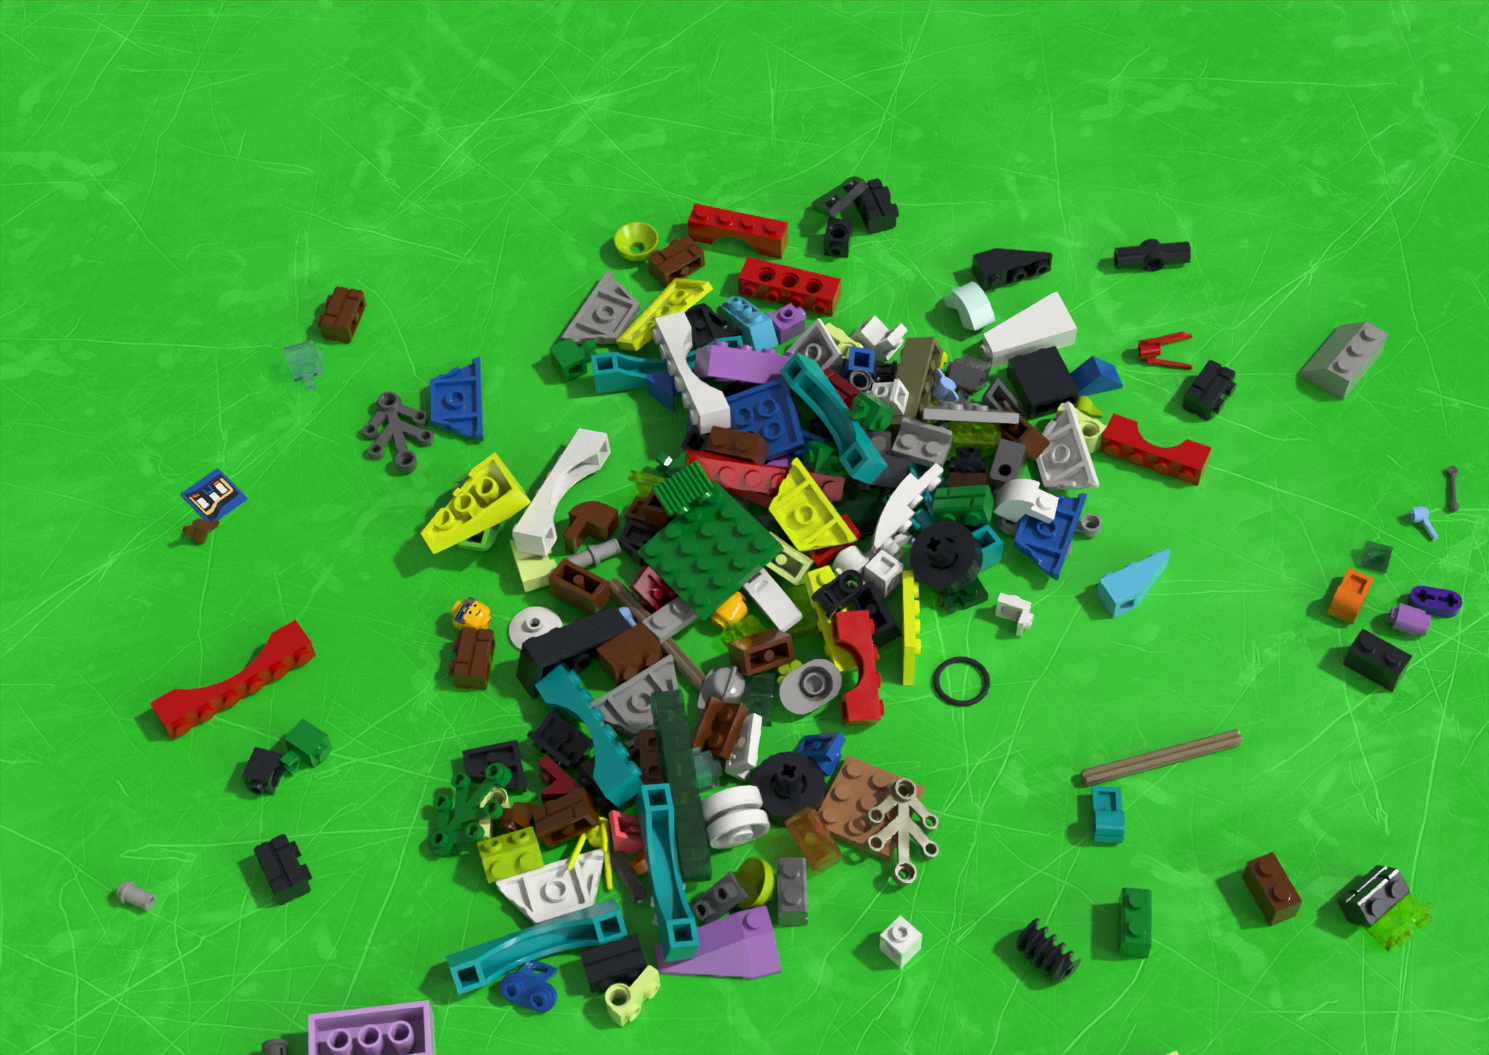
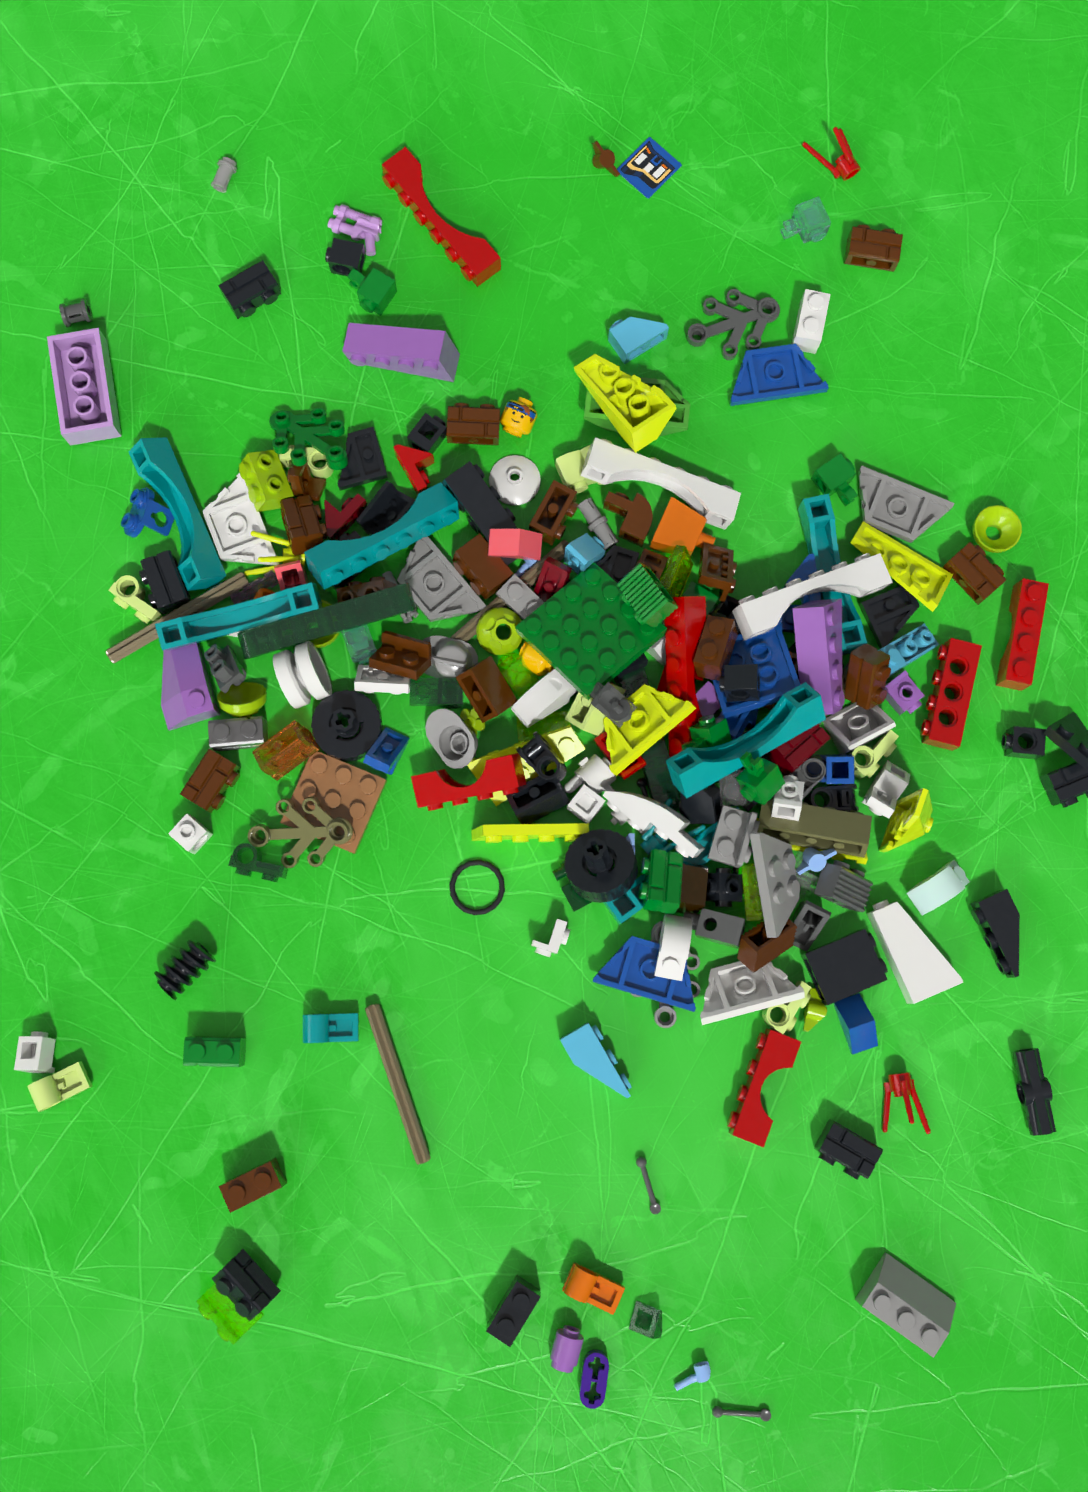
camera: 80 degrees right, 25 degrees up
(228, 755) = (366, 226): none -> lavender piece
(250, 329) = (846, 163): none -> red plant
(380, 718) = (402, 350): none -> medium lavender wedge
(400, 513) = (635, 336): none -> medium azure slope
(408, 366) = (811, 320): none -> white brick
(479, 700) = (426, 426): none -> black brick
(508, 719) = (412, 462): none -> red slope
(608, 483) = (680, 527): none -> orange torso
(612, 617) = (515, 544): none -> coral slope
(626, 562) = (583, 552): none -> medium azure slope
(655, 448) = (717, 569): none -> reddish brown bracket
(655, 954) = (192, 607): none -> dark tan axle
(697, 650) = (487, 628): none -> lime piece
(766, 334) = (867, 676): none -> reddish brown brick
(775, 422) = (741, 683): none -> black brick
(790, 525) = (612, 703): none -> dark grey hips
(842, 922) = (211, 781): none -> reddish brown brick
(908, 308) = (908, 820): none -> neon yellow wedge
(934, 879) = (269, 871): none -> clear green plate
(1271, 547) = (655, 1208): none -> dark grey hinge

